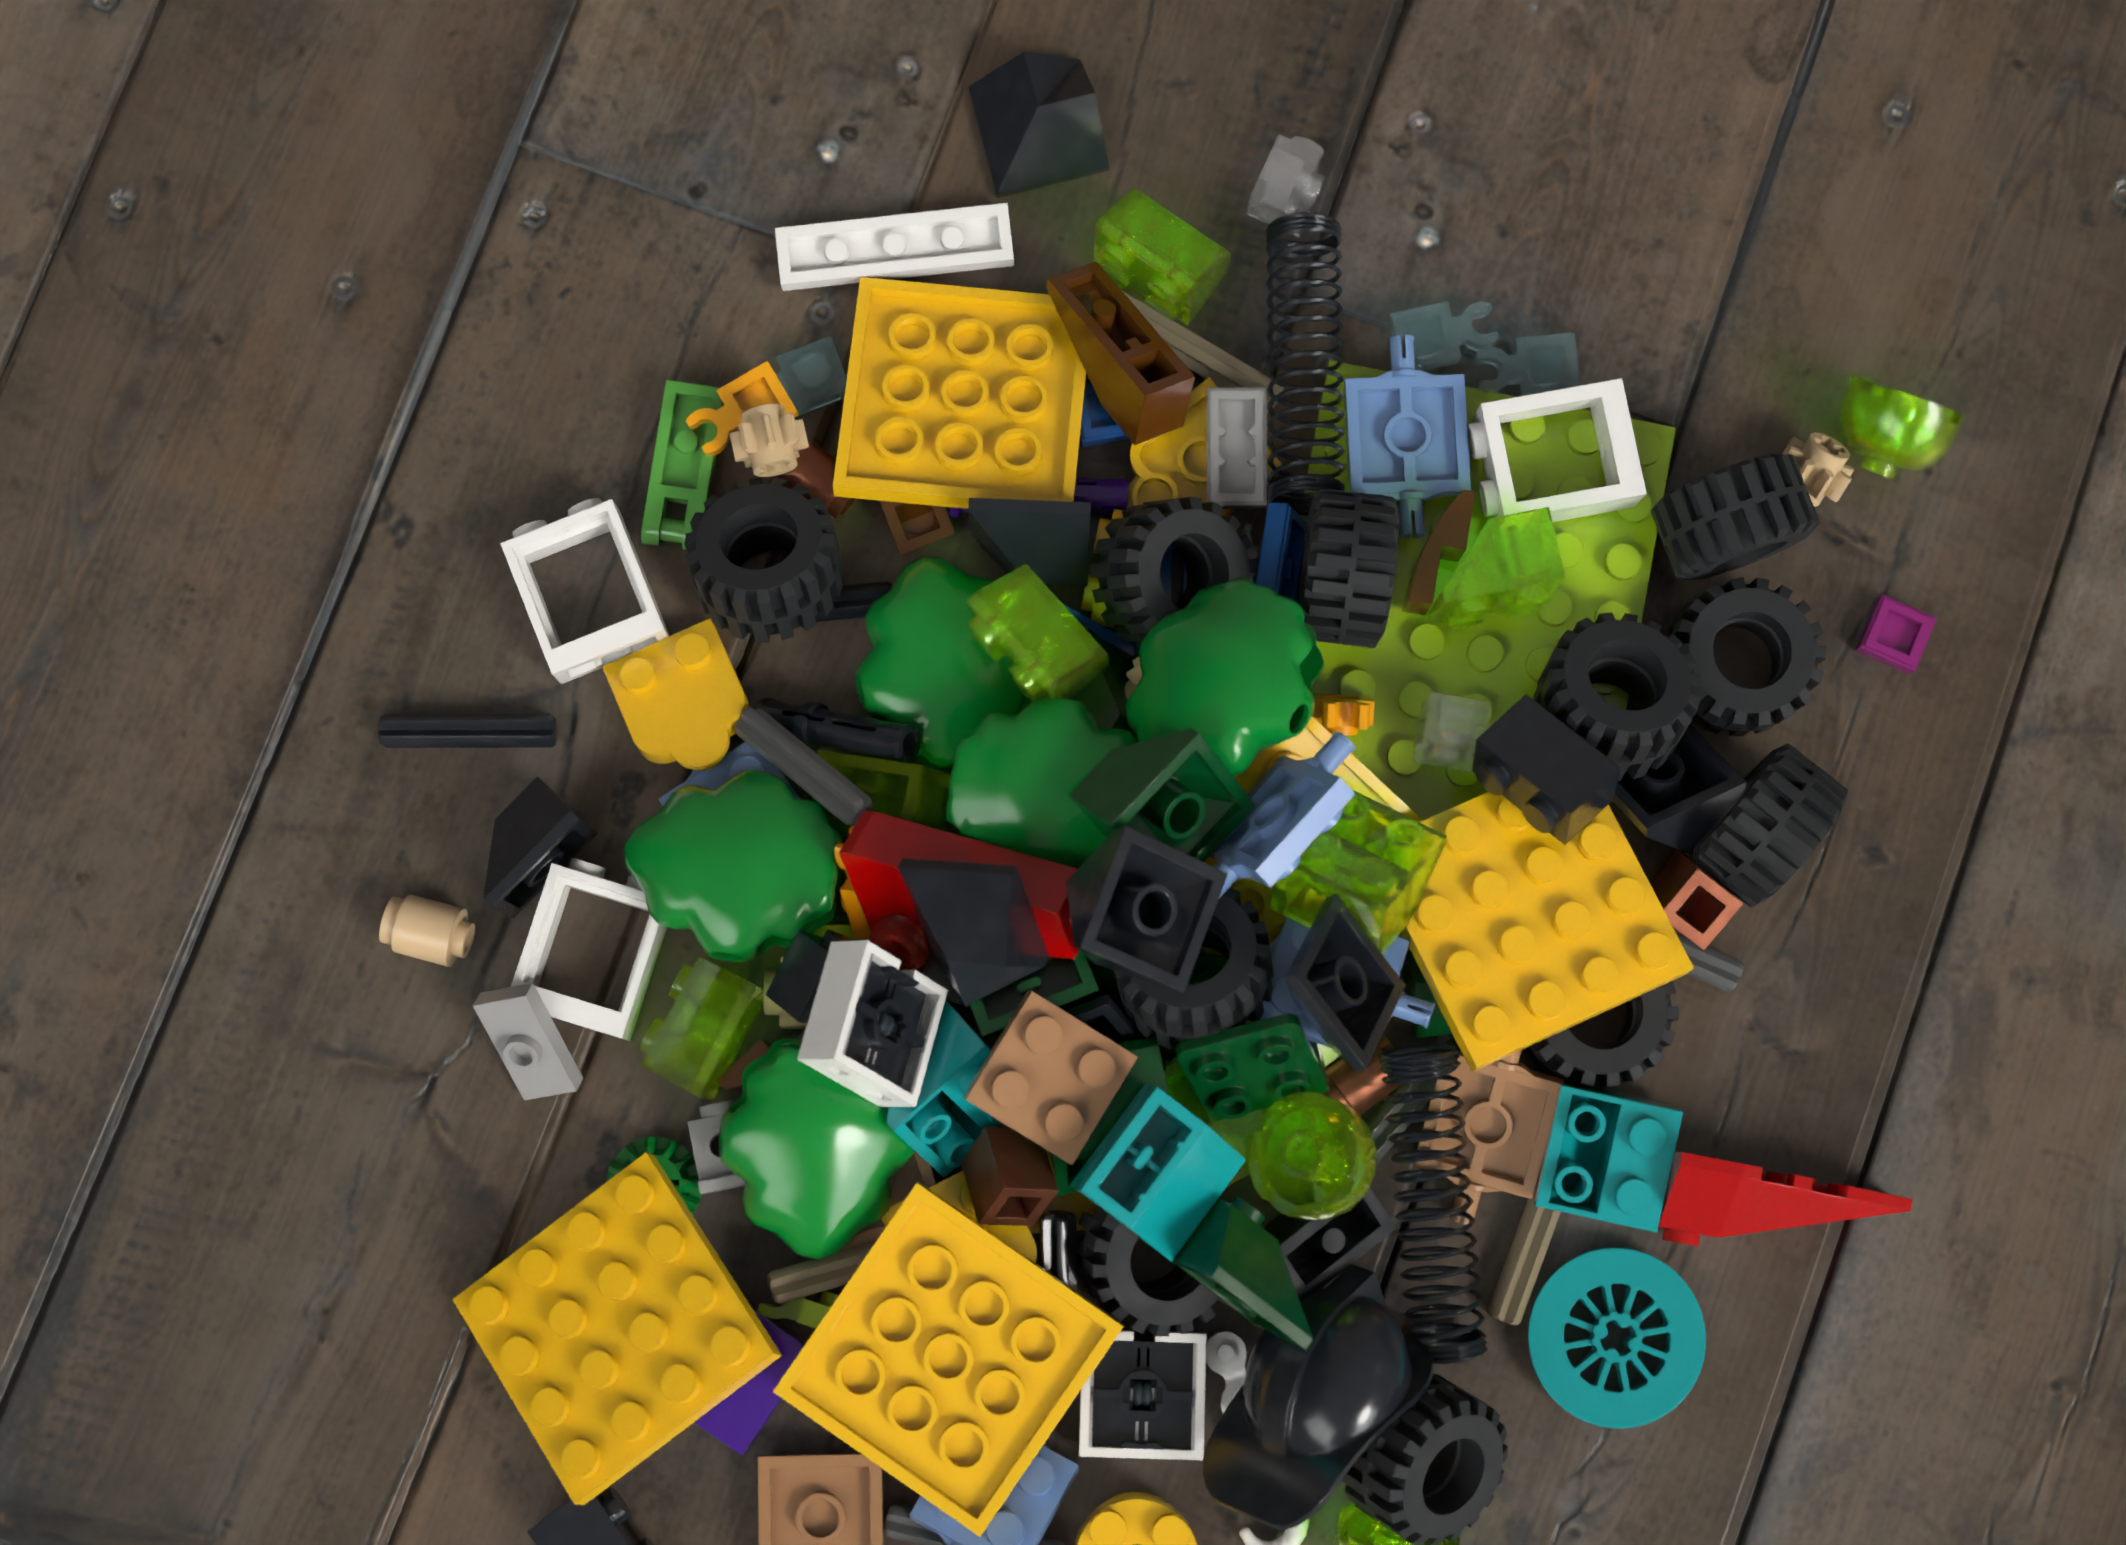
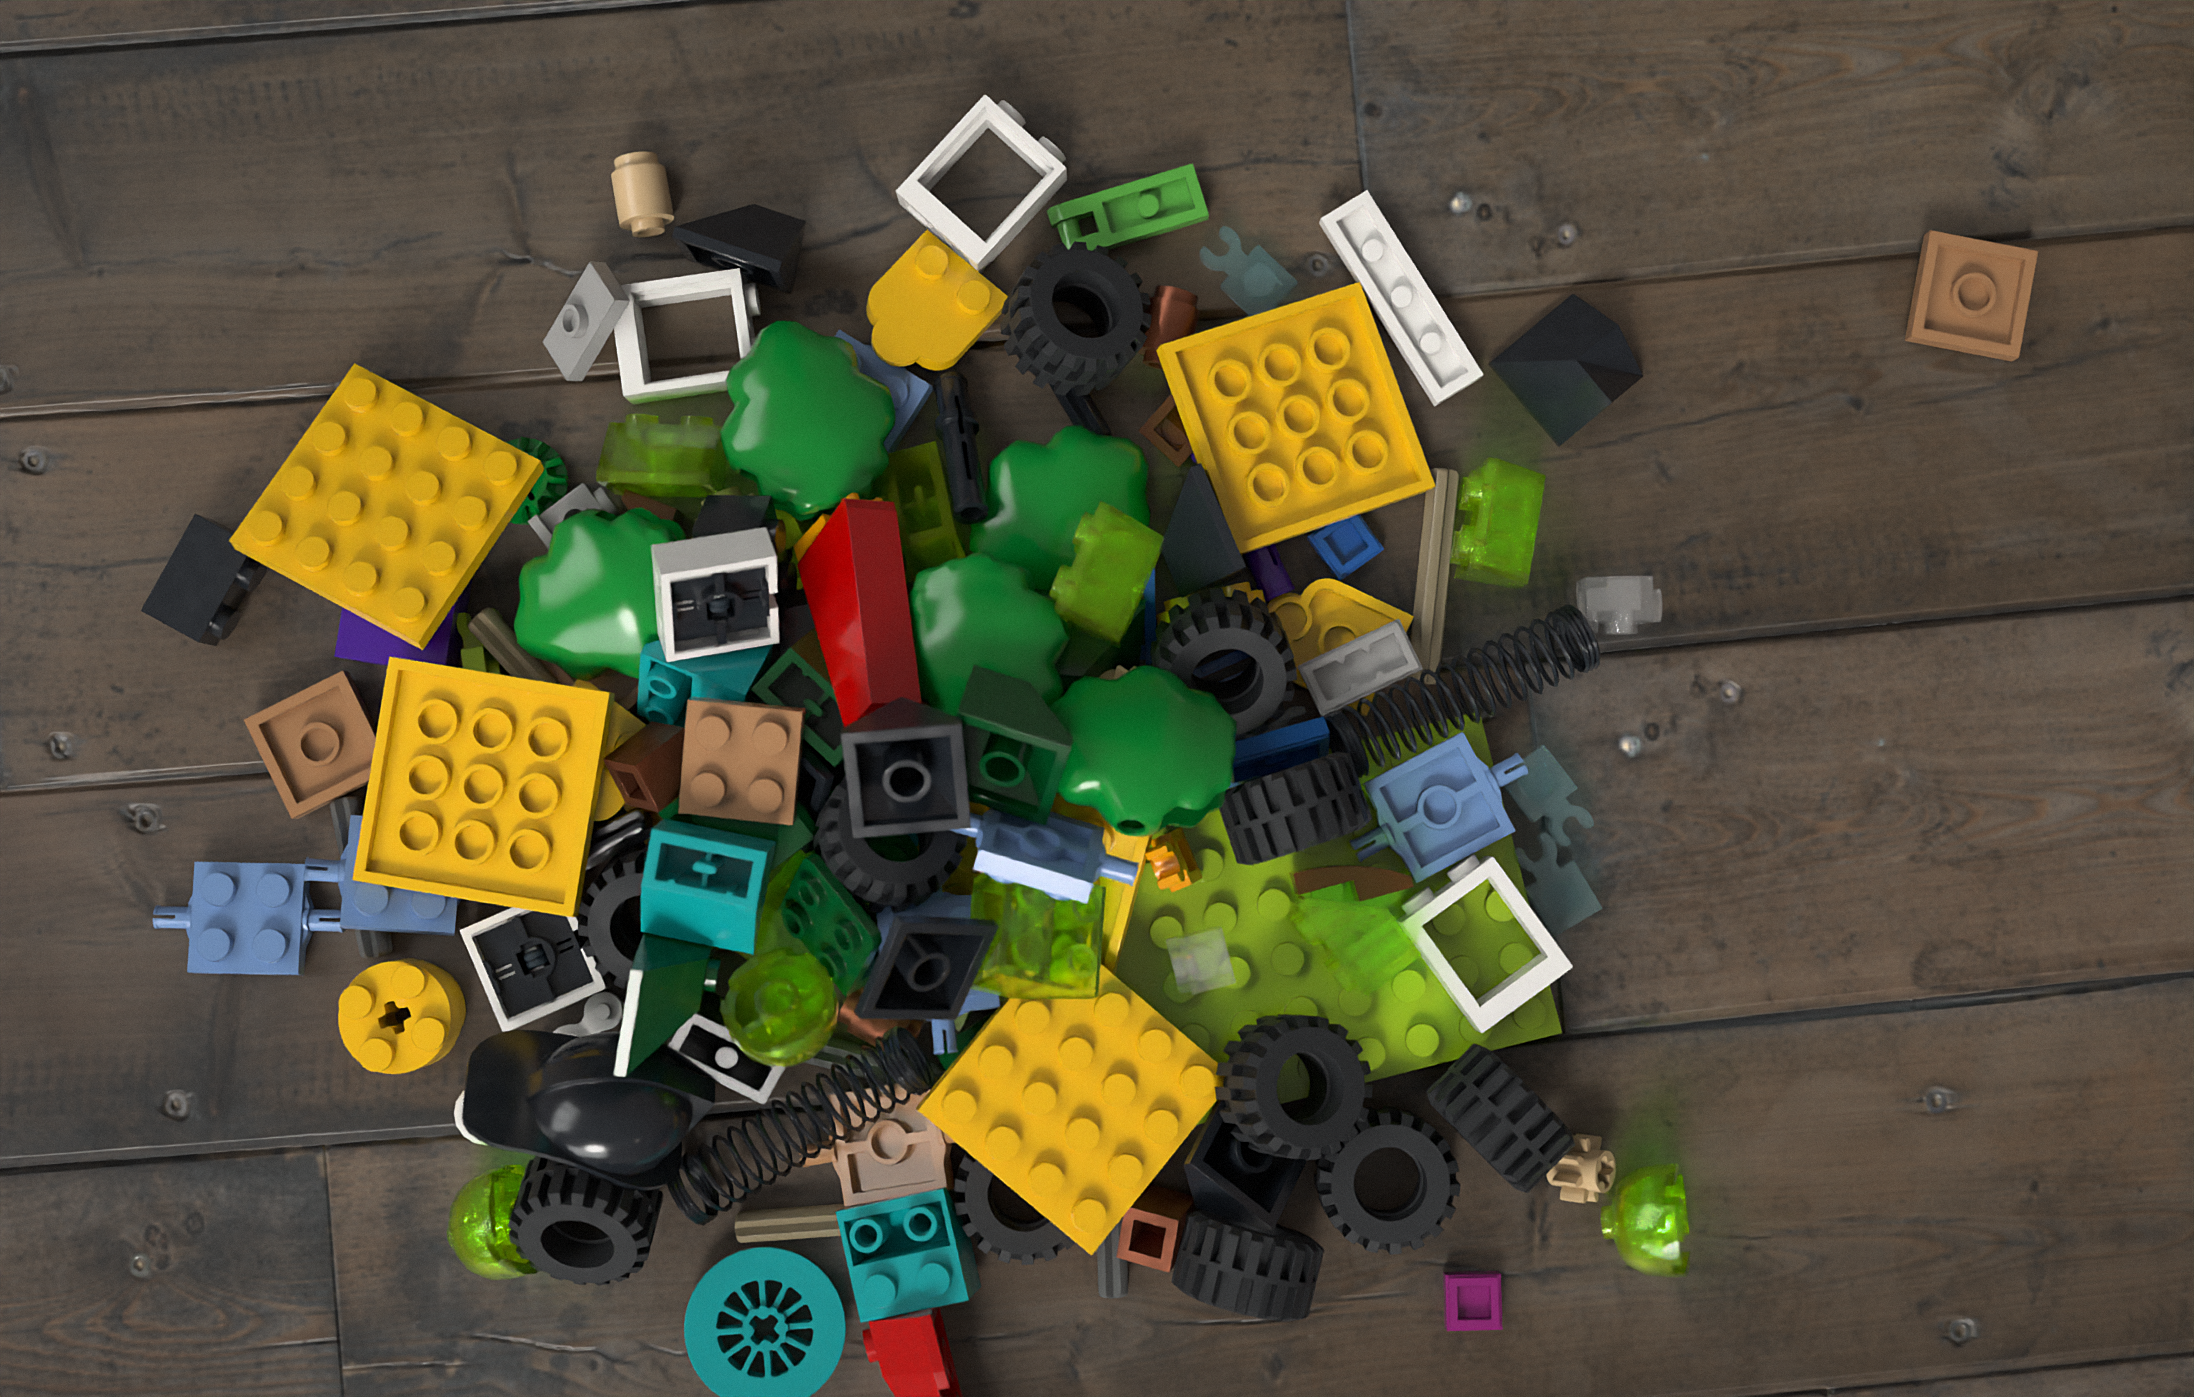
camera: 65 degrees right, 5 degrees up
(467, 730) = (822, 146): black axle -> none
(750, 390) = (1202, 245): light orange plate -> none
(769, 440) = (1175, 273): tan gear -> none
(802, 765) = (914, 434): dark grey axle -> none
(901, 939) = (798, 584): clear red plate -> none
(975, 923) = (834, 639): black slope -> none
(1122, 353) = (1394, 532): reddish brown slope -> none
(1544, 770) = (1196, 1053): black brick -> none

